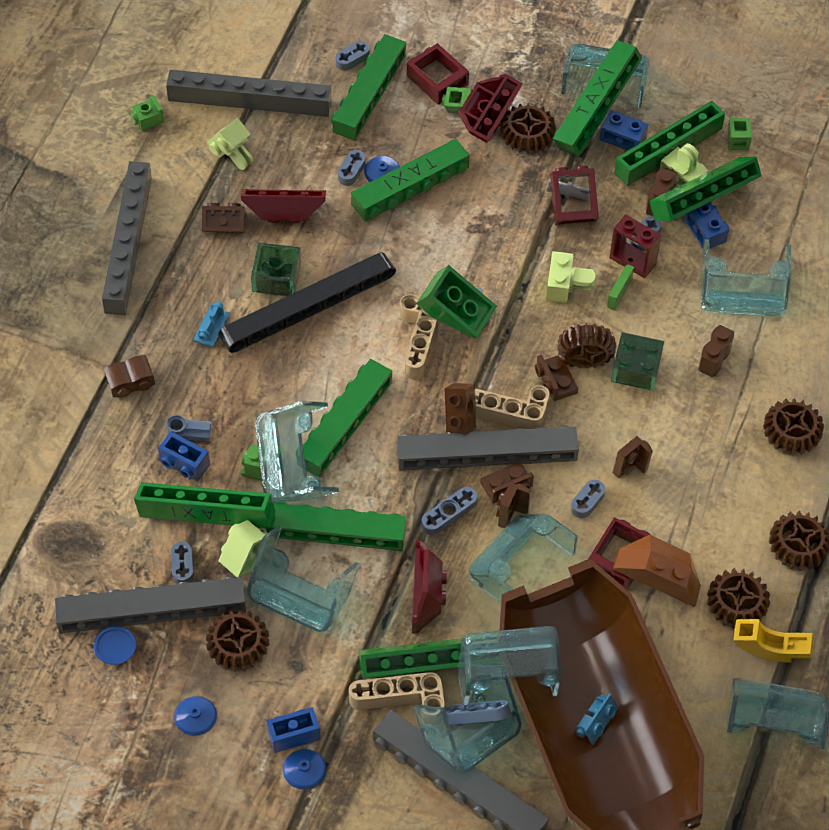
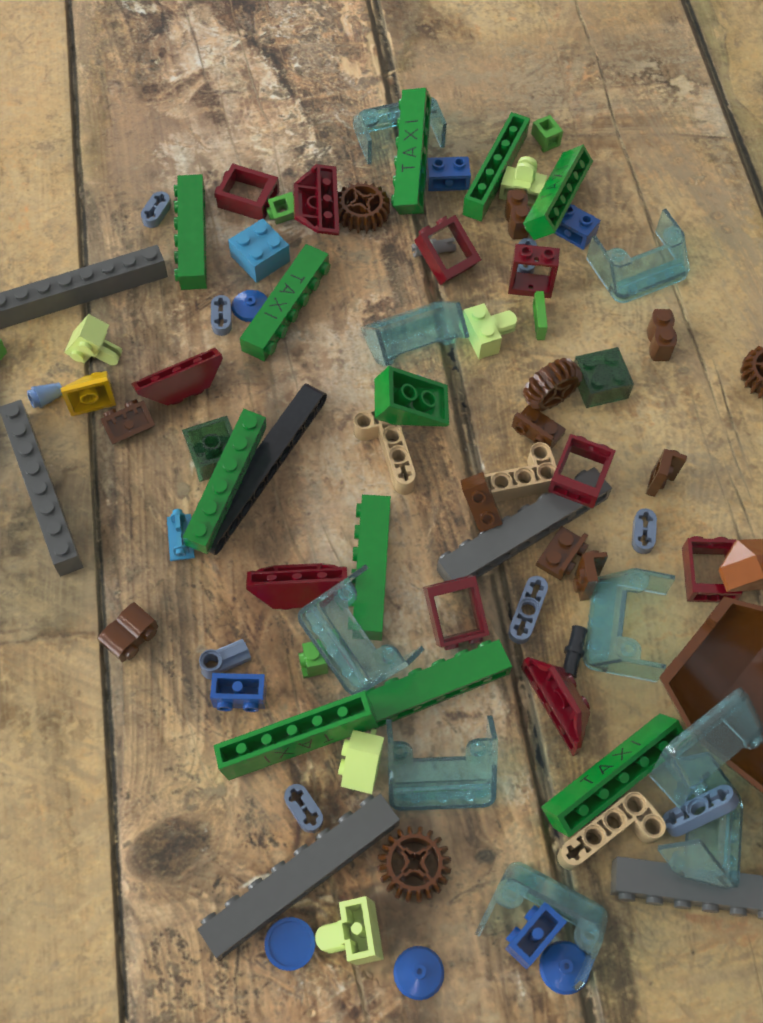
camera: 30 degrees left, 5 degrees up
(164, 660) = (355, 932): none -> yellowish green brick
(172, 168) = (44, 394): none -> medium blue cone
(206, 183) = (89, 394): none -> yellow slope
(263, 396) = (293, 584): none -> dark red wedge
(265, 295) = (225, 481): none -> green brick
(336, 741) = (587, 915): none -> clear light blue windscreen
(392, 457) = (472, 636): none -> dark red window
(415, 127) = (259, 250): none -> dark azure brick
(464, 557) = (574, 650): none -> black pin
(498, 250) = (414, 329): none -> clear light blue windscreen
(543, 436) = (576, 490): none -> dark red window

